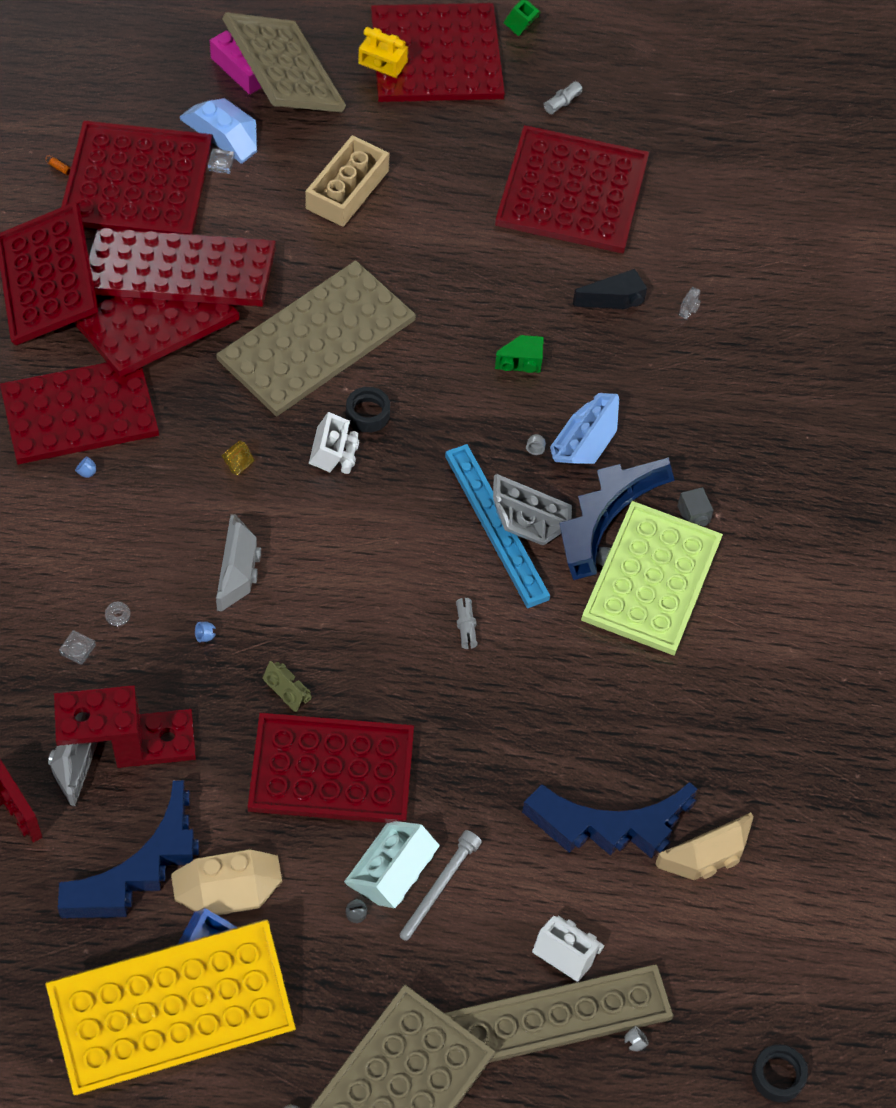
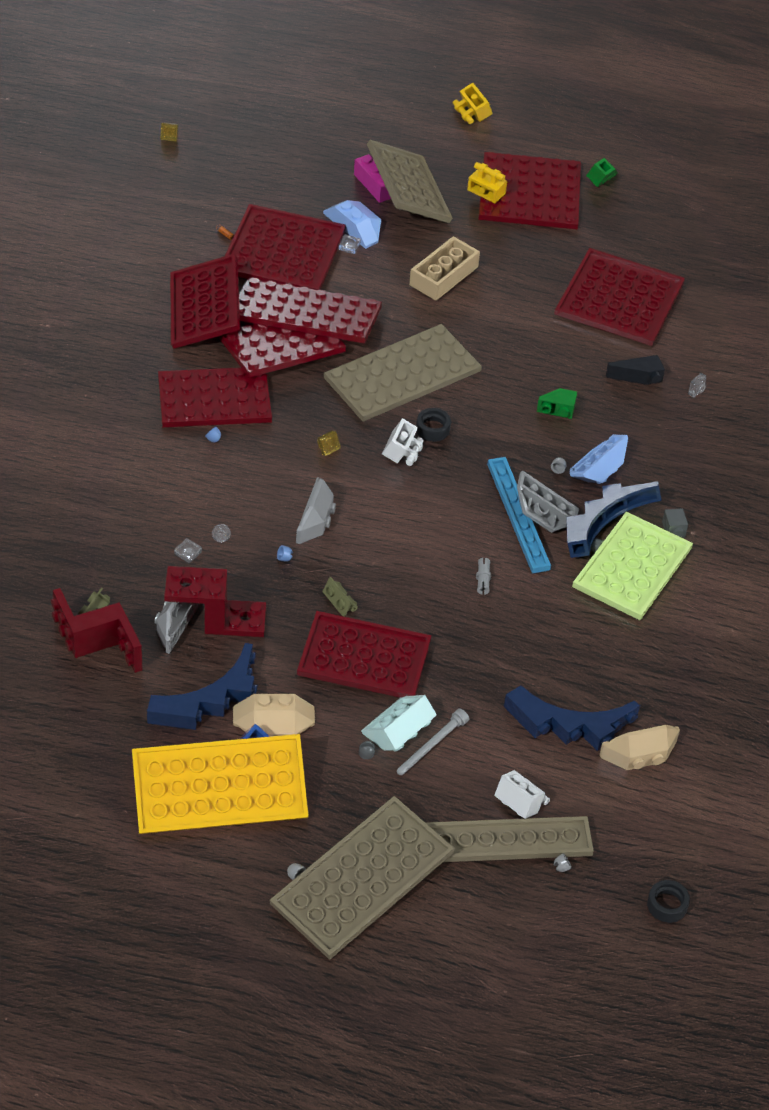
camera: 10 degrees right, 10 degrees down
(563, 97) = (624, 233): light grey pin -> none

